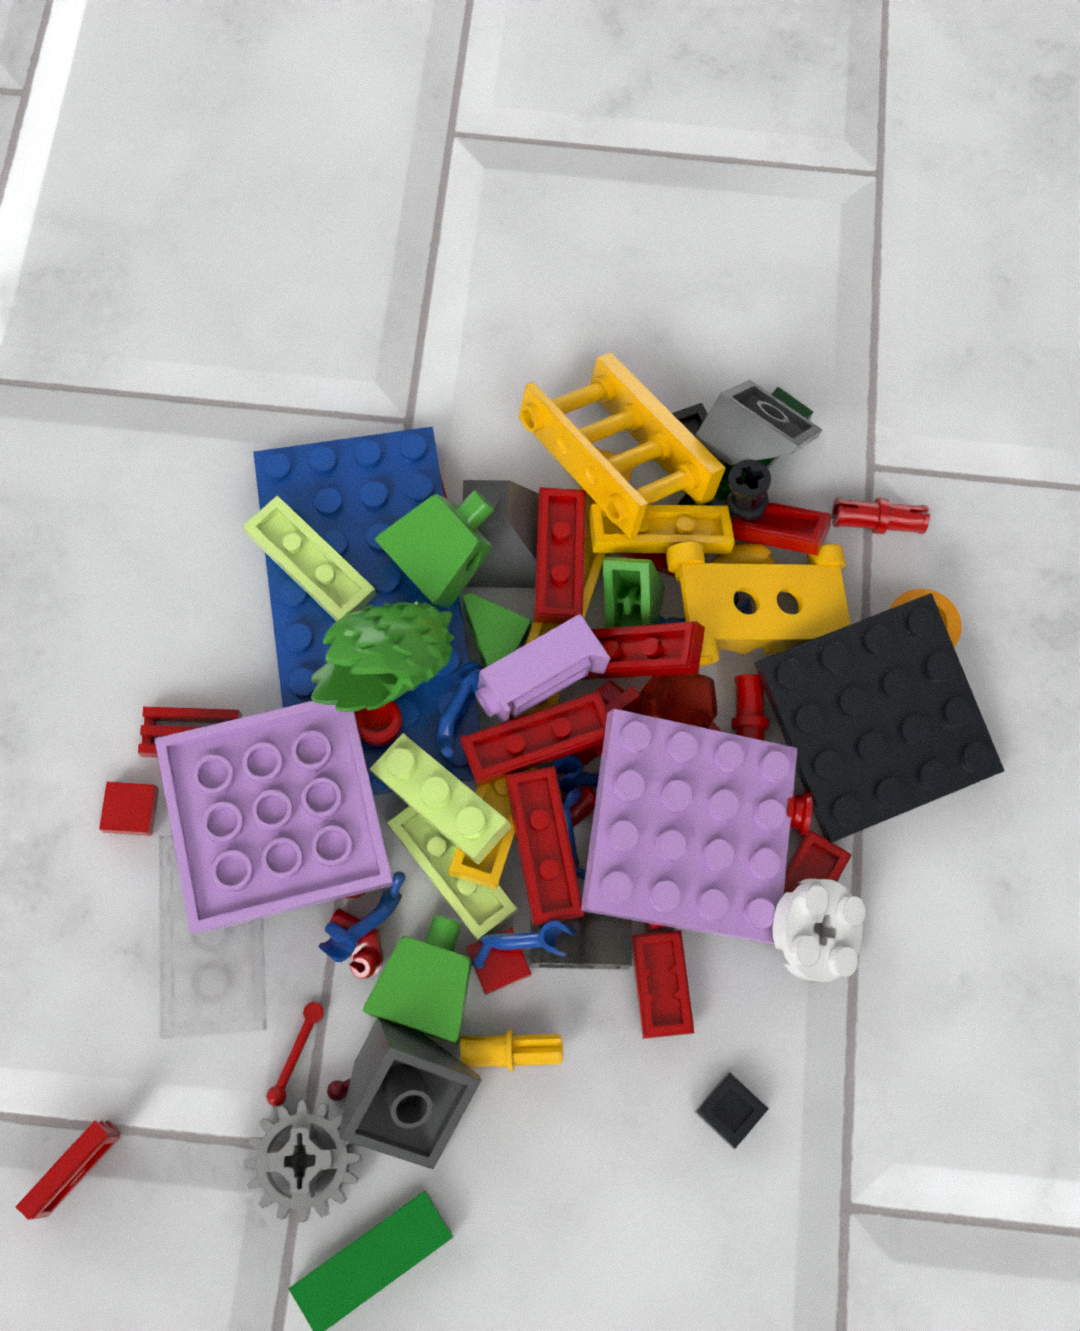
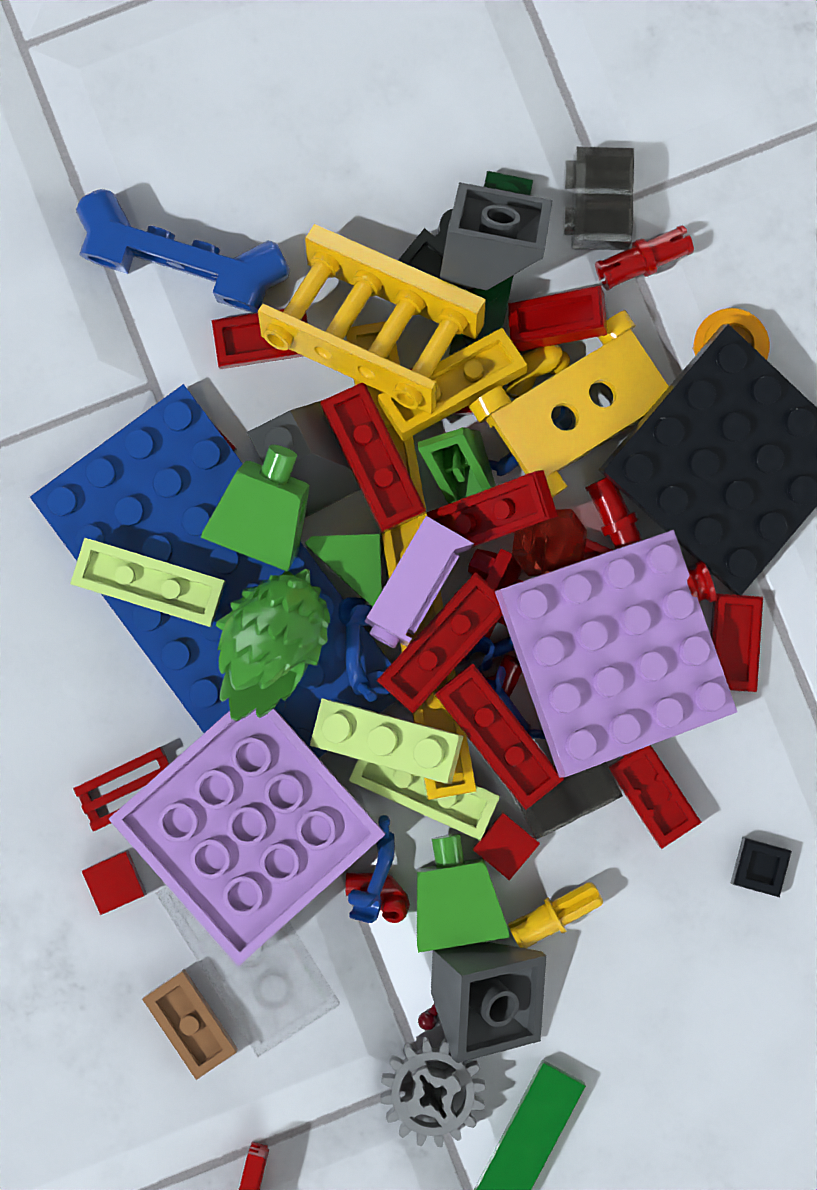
camera: 25 degrees left, 15 degrees up
(117, 972) = (190, 1024): none -> medium nougat plate
(313, 1014) = (372, 970): red hinge -> none
(379, 725) = (299, 703): red tile -> none
(441, 298) = (114, 243): none -> blue plate
(499, 424) = (240, 342): none -> red tile
(527, 940) = (507, 832): blue piece -> none
(755, 487) = (517, 291): black bush -> none
(841, 940) = (787, 677): white plate -> none
(865, 451) = (601, 198): none -> clear smoke brick

